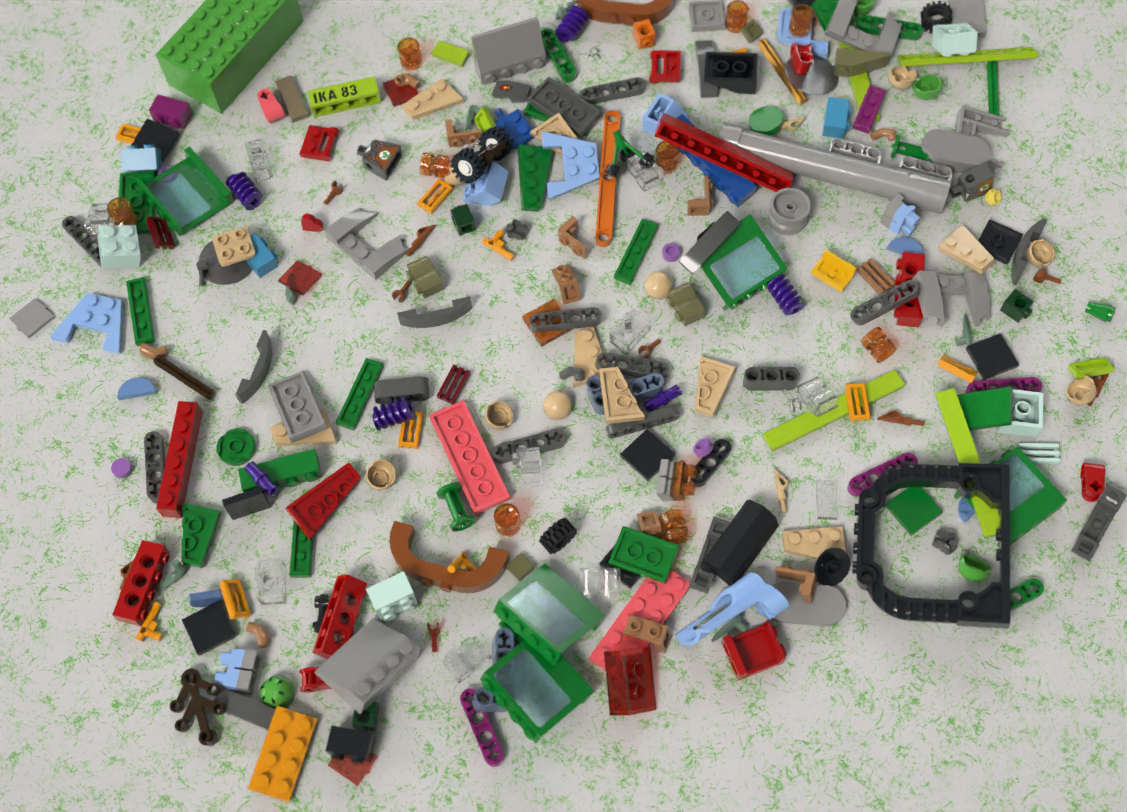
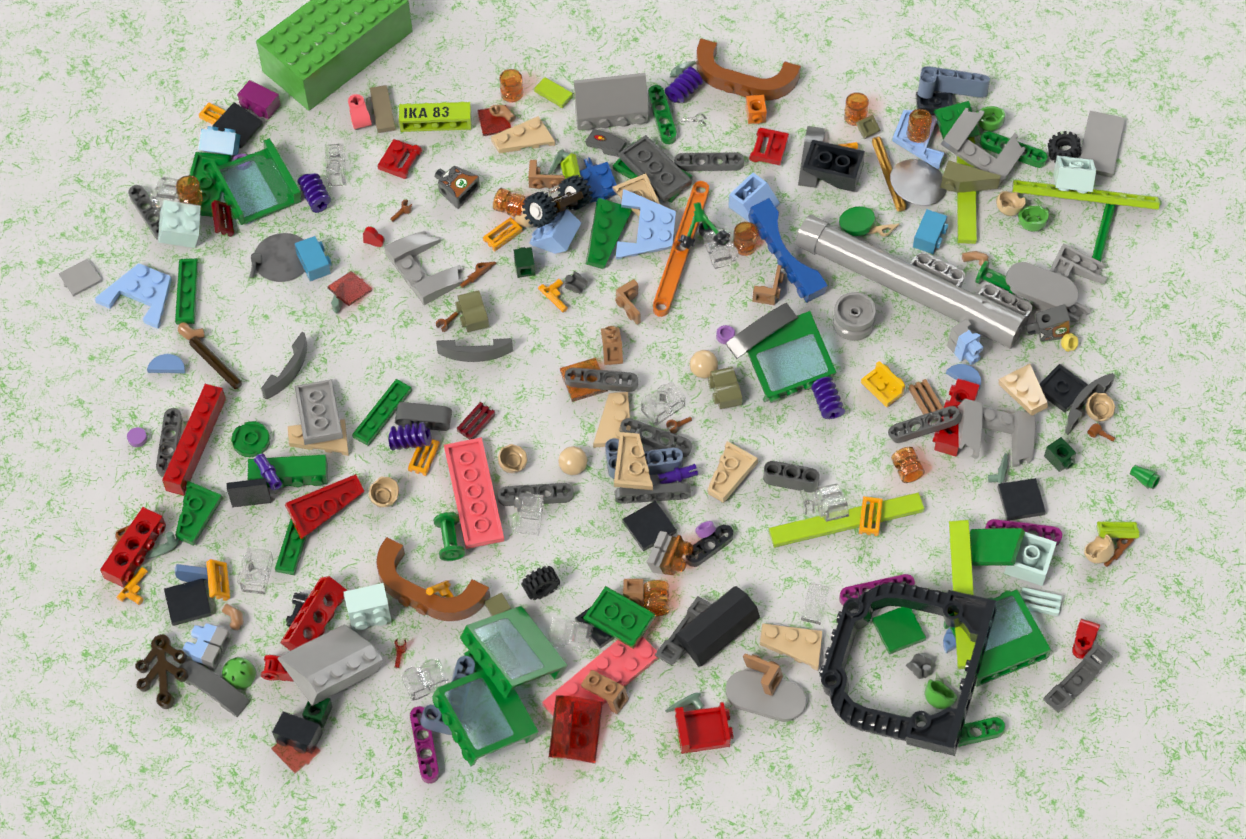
camera: 10 degrees right, 5 degrees down
(233, 246) = (291, 245): tan bracket -> none
(282, 754) = (231, 728): light orange plate -> none
(507, 520) = (495, 558): clear orange wheel -> none
(572, 371) = (598, 432): dark grey arm -> none
(636, 251) = (690, 327): green tile -> none
(707, 15) = (827, 102): light grey tile -> none
(722, 153) = (799, 245): red brick -> none
(738, 597) = (699, 675): light blue panel -> none
(781, 490) = (772, 585): tan hand -> none
(801, 58) = (910, 164): red piece -> none
(832, 566) = (805, 670): black dish -> none
(869, 109) = (966, 229): magenta tile -> none
(900, 419) = (909, 541): dark orange hand -> none
(957, 368) = (981, 503): light orange tile -> none

